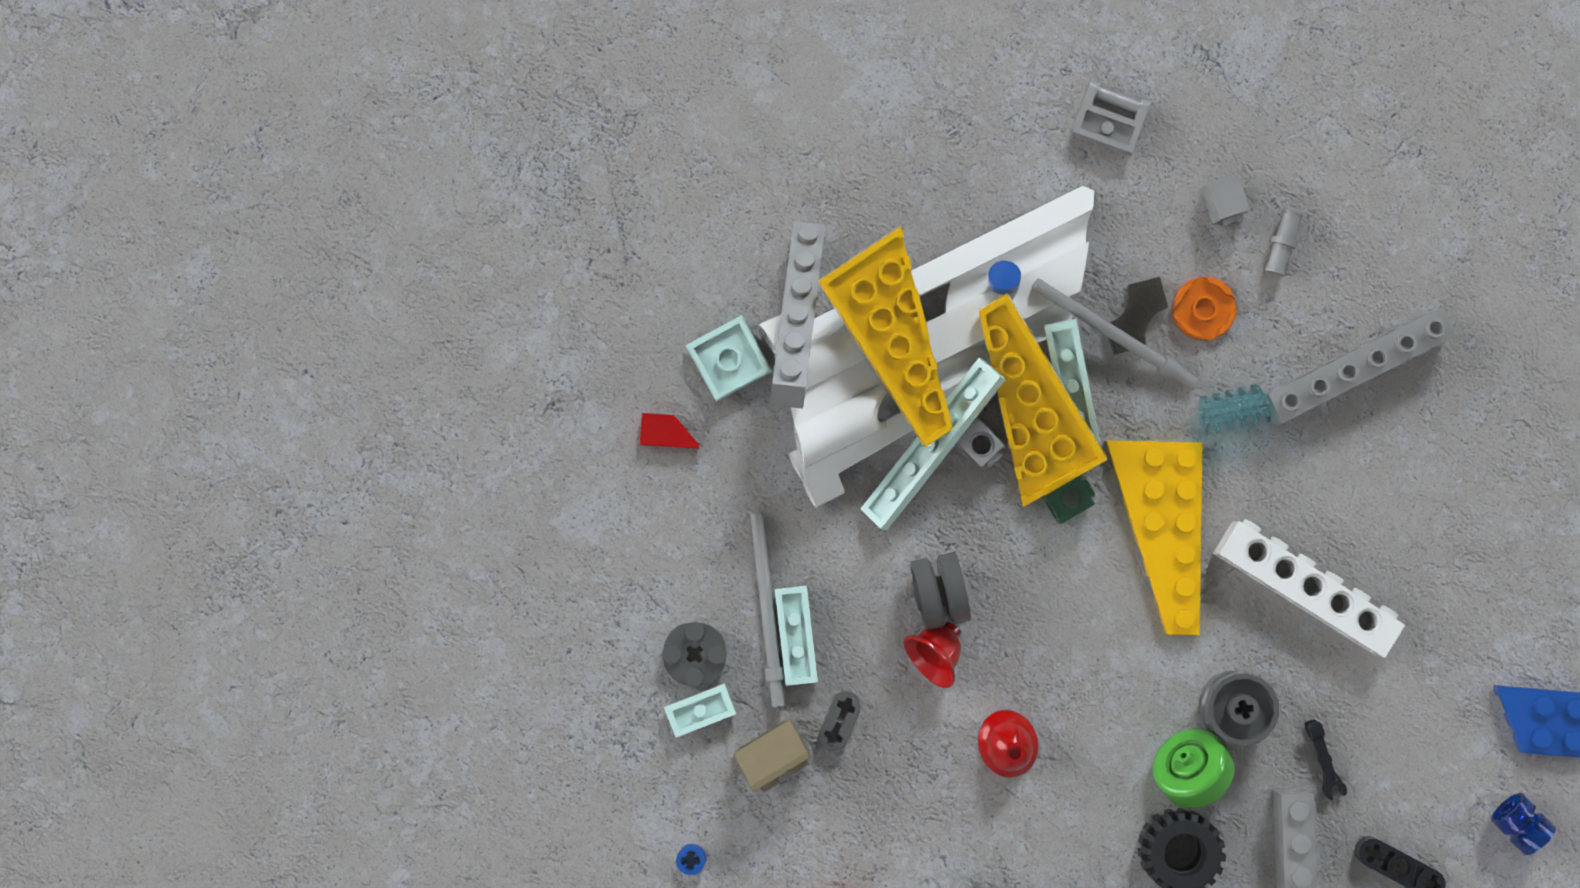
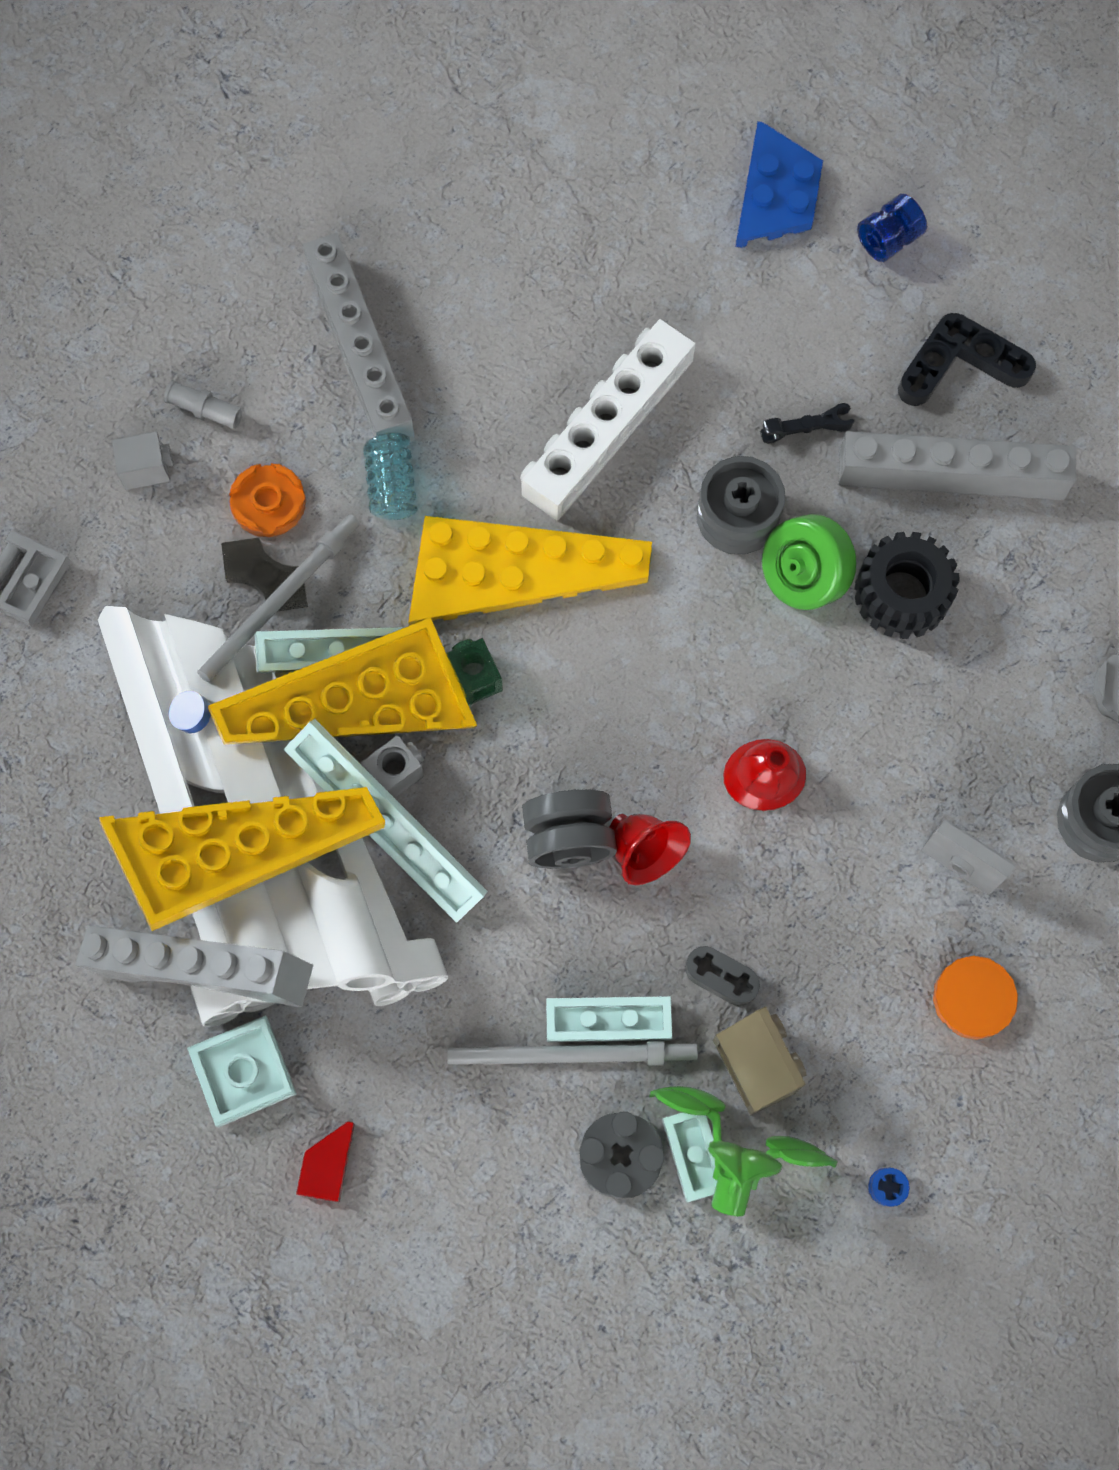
camera: 85 degrees left, 15 degrees down
(685, 744) = (735, 1166): none -> bright green plant

